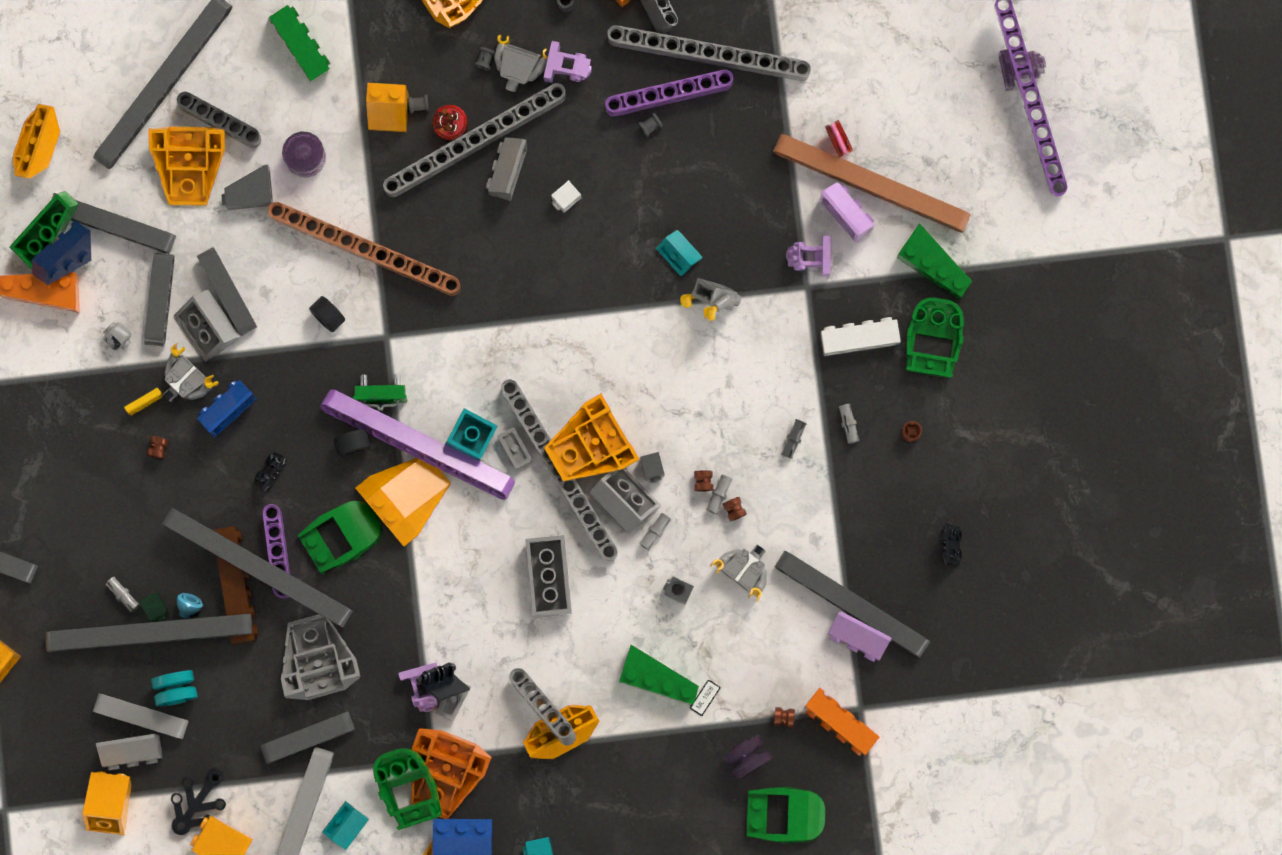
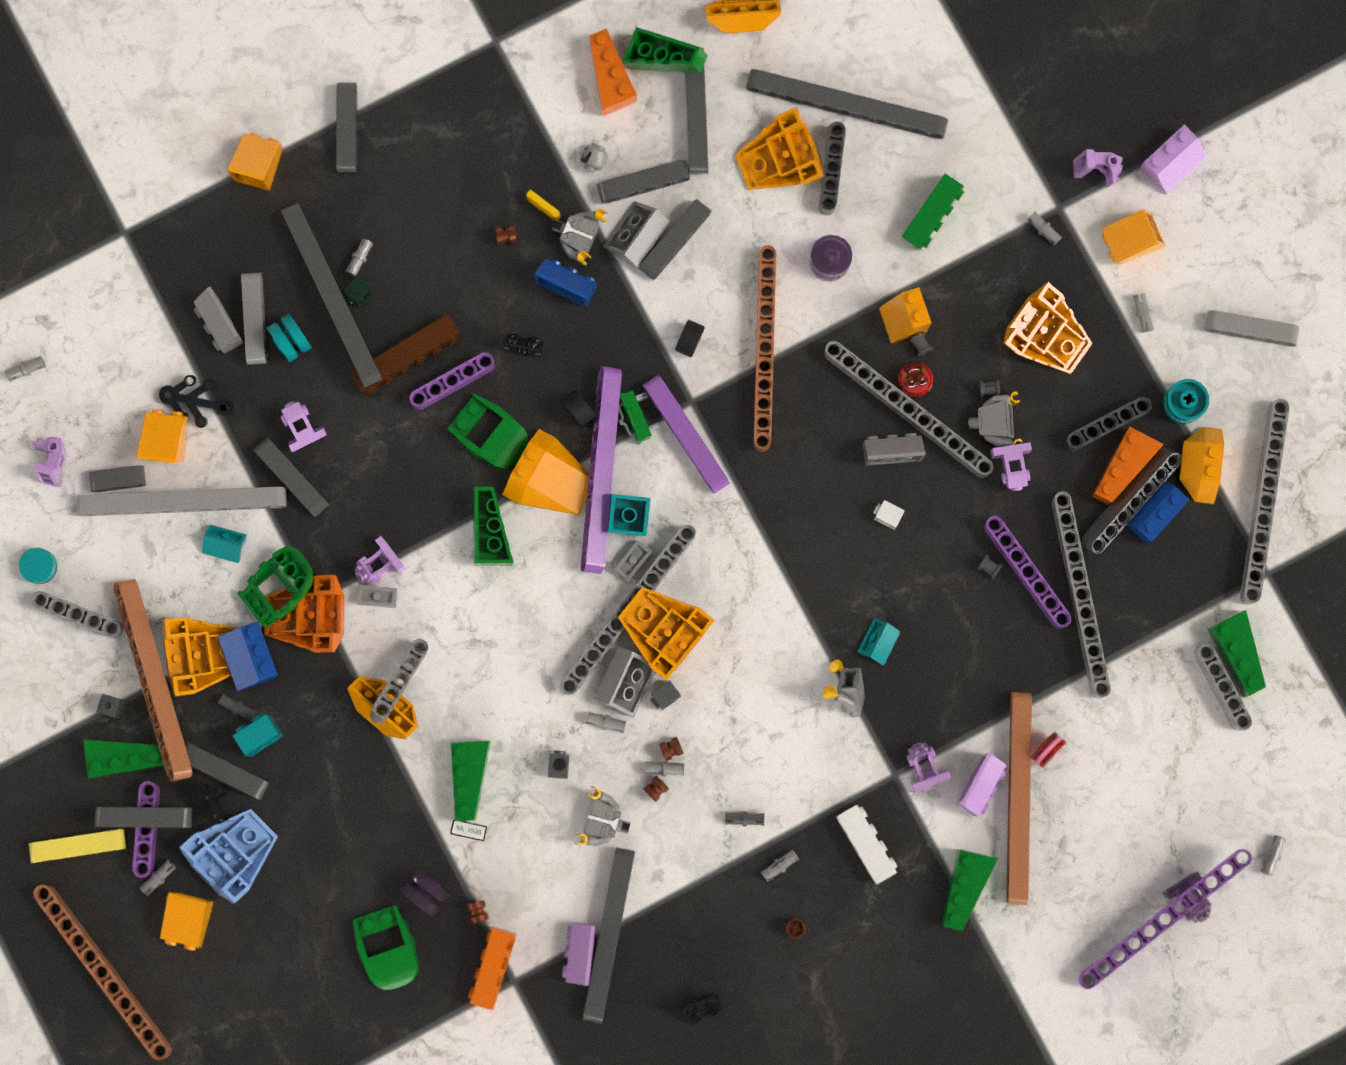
camera: 65 degrees right, 0 degrees up
(64, 255) = (647, 79): dark blue wedge -> none
(107, 803) = (163, 320): light orange slope -> none
(188, 605) = (372, 320): medium azure brick -> none
(248, 709) = (294, 412): none -> lavender tile
(249, 191) = (777, 223): dark grey slope -> none
(257, 567) = (428, 368): dark grey beam -> none
(316, 660) = (365, 455): light grey wedge -> none
(415, 353) = (686, 434): none -> medium lavender beam
(433, 570) = (490, 539): none -> green wedge
(442, 682) = (386, 579): black hinge -> none
(548, 576) = (524, 639): light grey brick -> none
(935, 319) = (913, 913): green slope -> none

